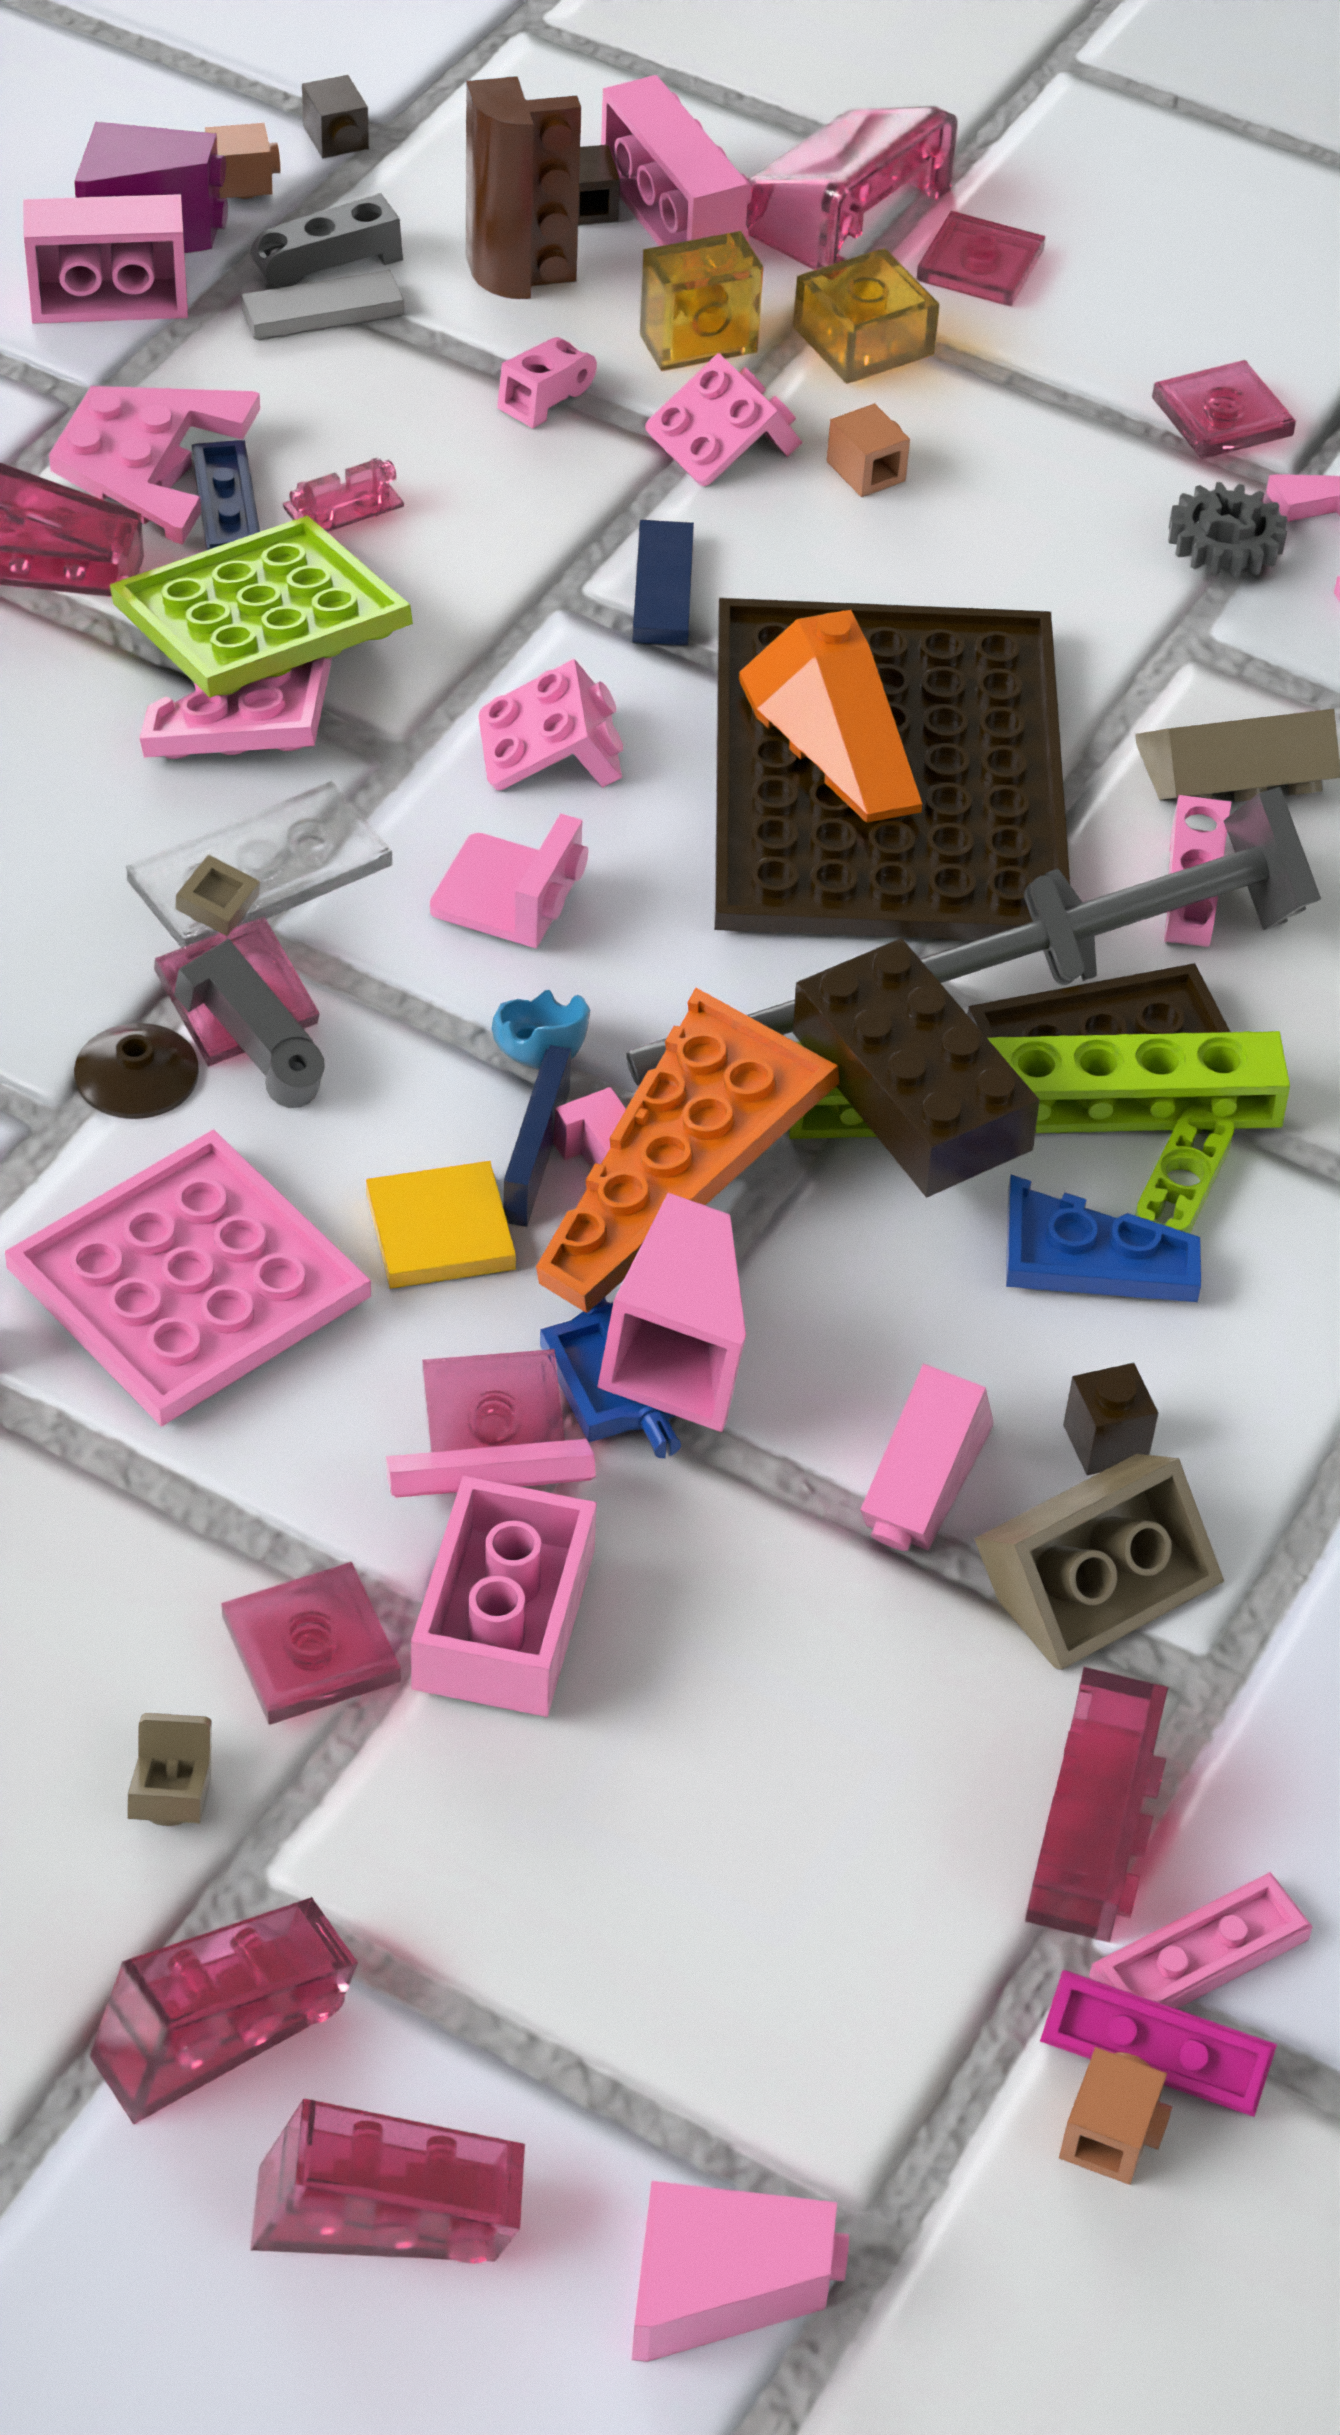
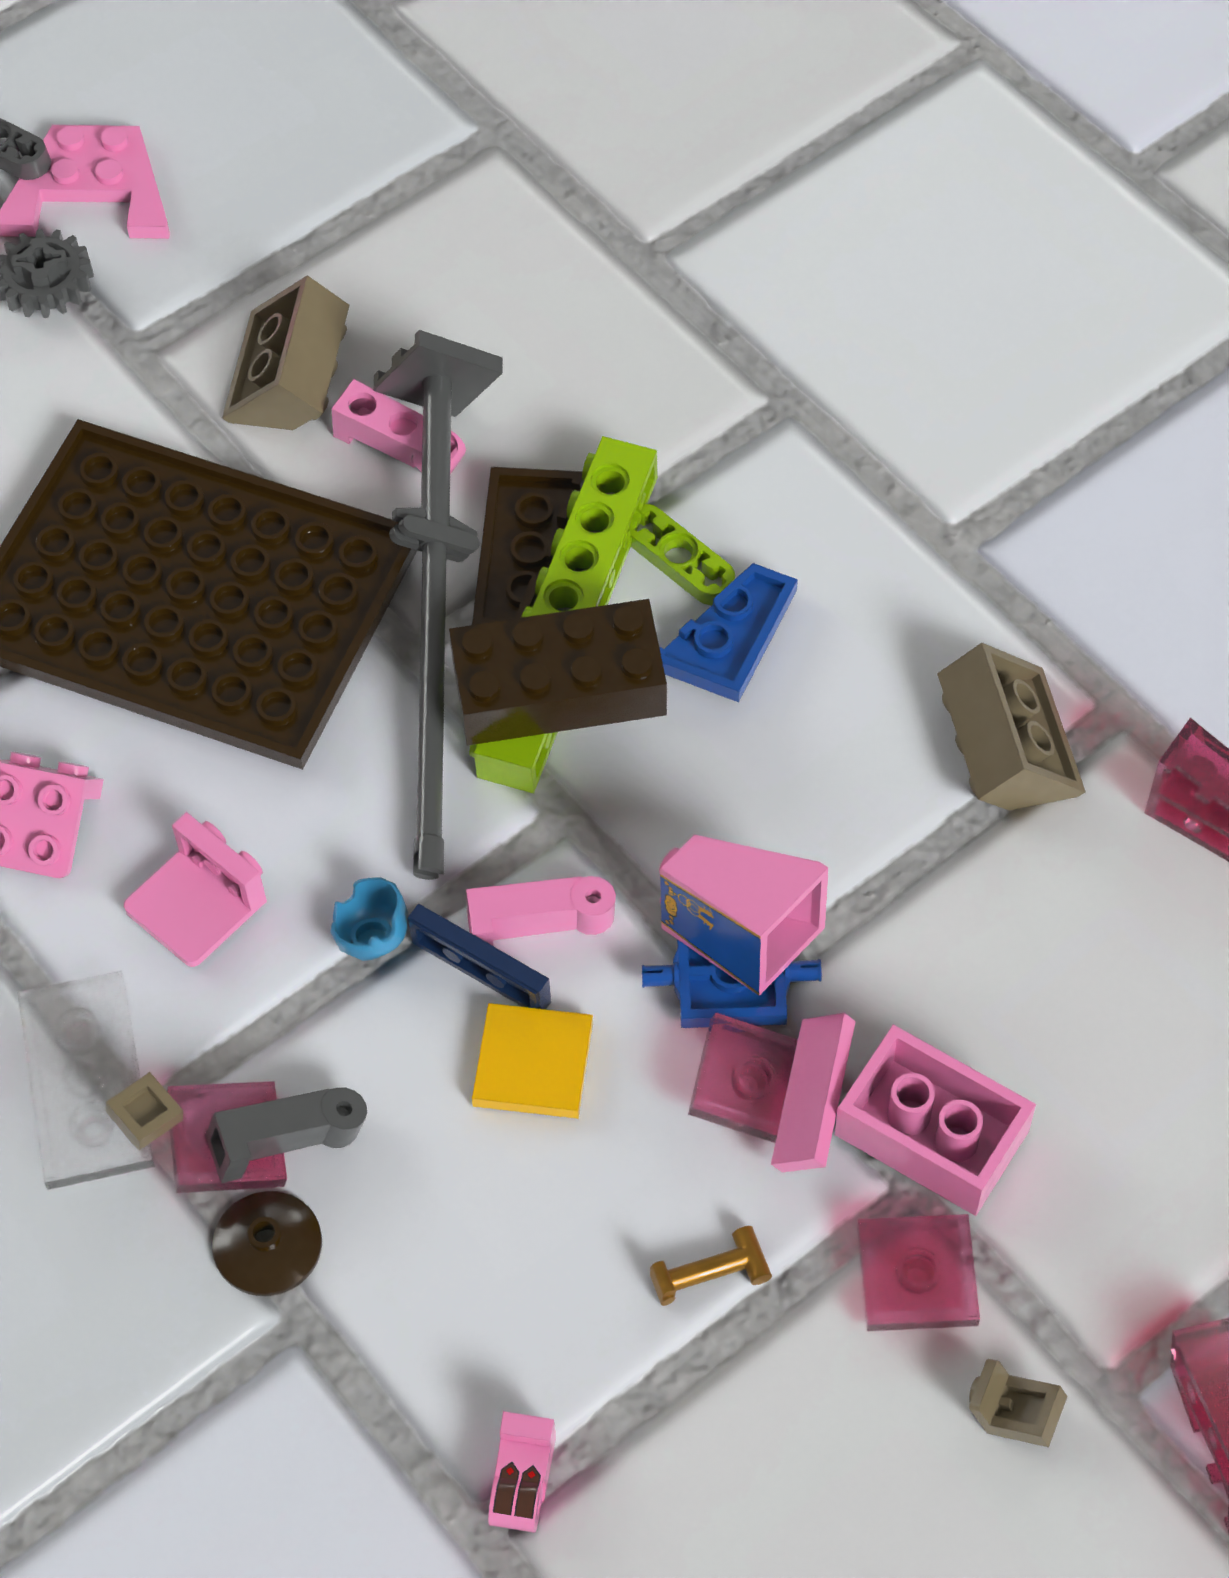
camera: 65 degrees left, 10 degrees up
(187, 1276) = (521, 1262): bright pink plate -> none
(273, 1482) = (746, 1256): none -> pearl gold piece
(687, 1132) = (542, 840): orange wing -> none
(831, 705) = (123, 597): orange wedge -> none
(927, 1459) = (899, 803): bright pink slope -> none
(1109, 1417) = (897, 678): dark brown brick -> none

